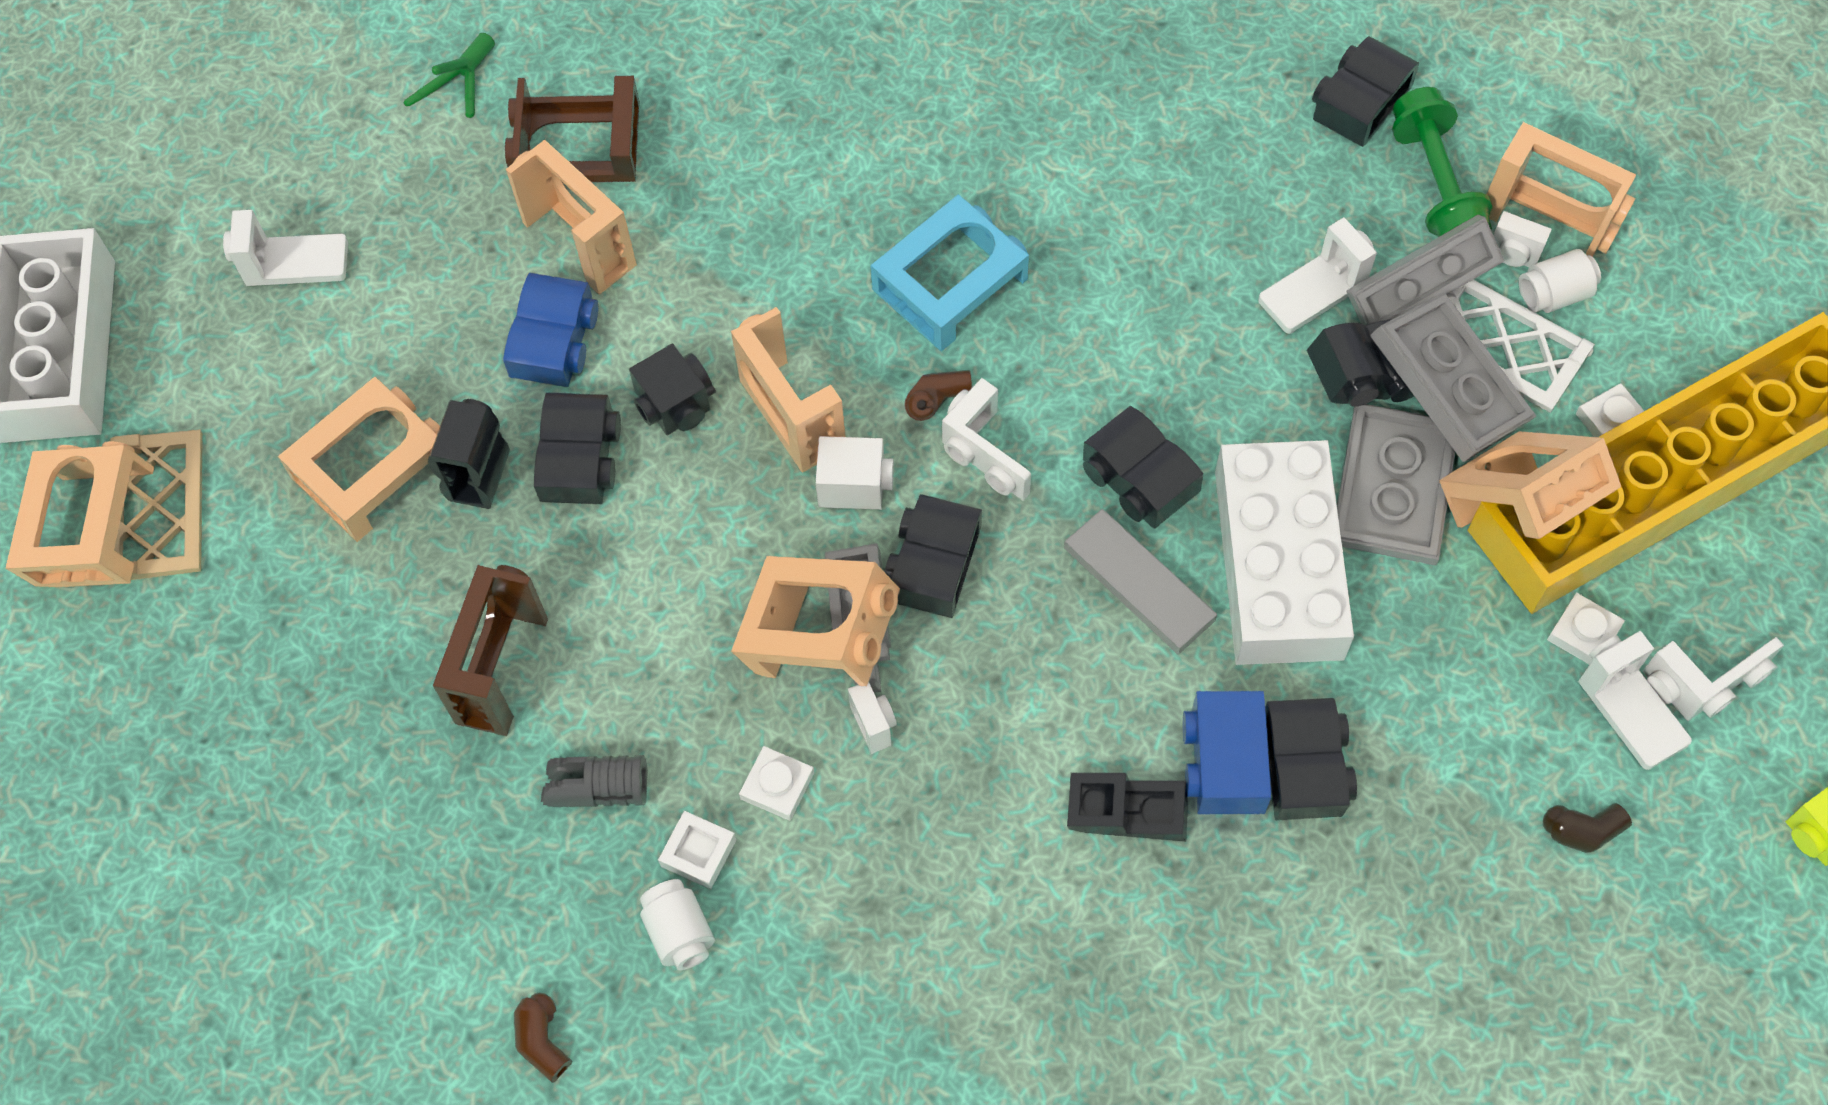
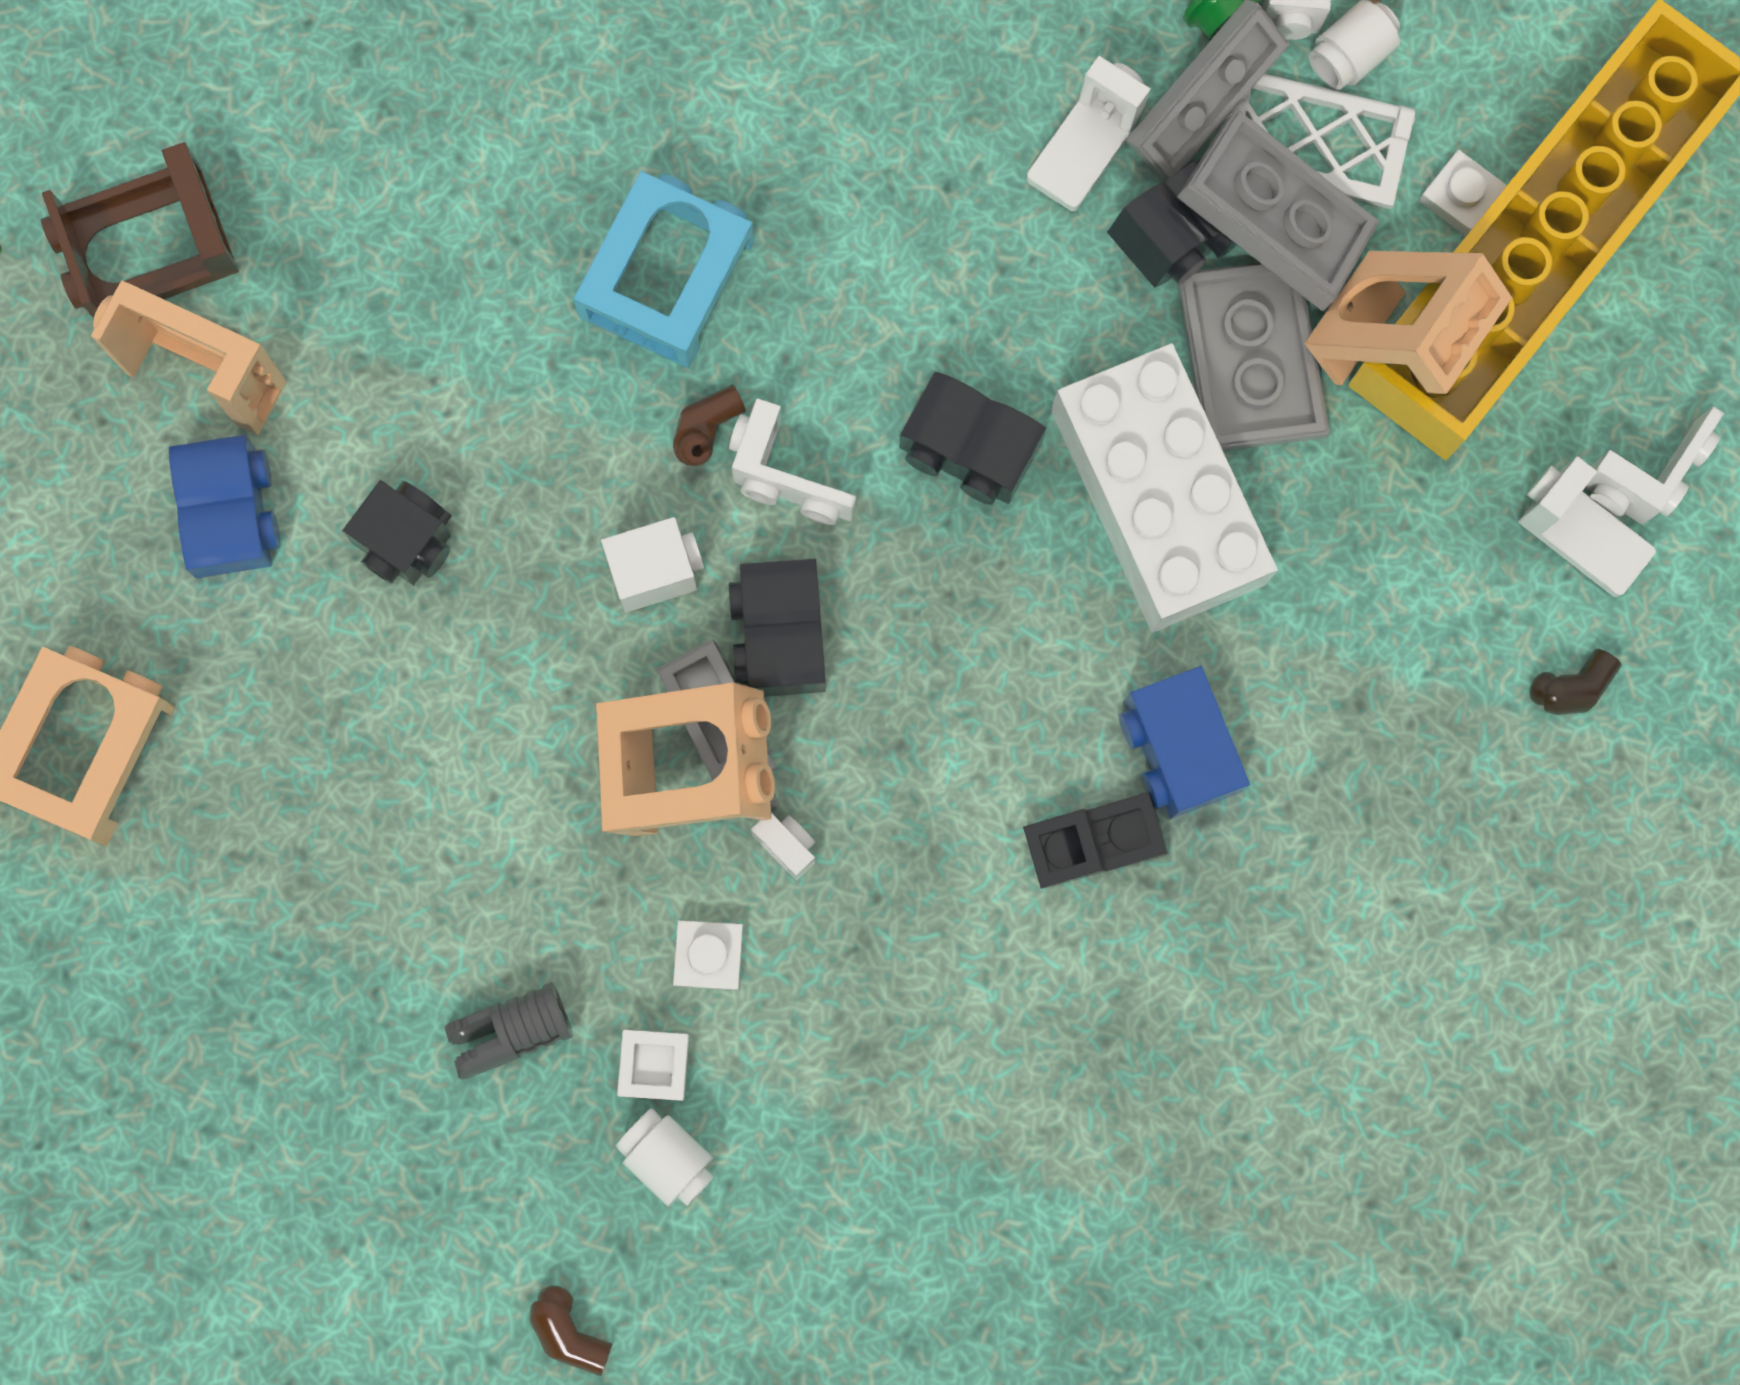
camera: 30 degrees left, 15 degrees up
(469, 453) = (199, 702): black brick -> none
(473, 694) = (311, 931): reddish brown panel -> none
(575, 448) = (316, 644): black brick -> none
(796, 422) = (576, 537): light nougat panel -> none
(1140, 581) = (1015, 573): light grey tile -> none
(1308, 759) = (1269, 718): black brick -> none
(1584, 627) = (1508, 459): white plate -> none

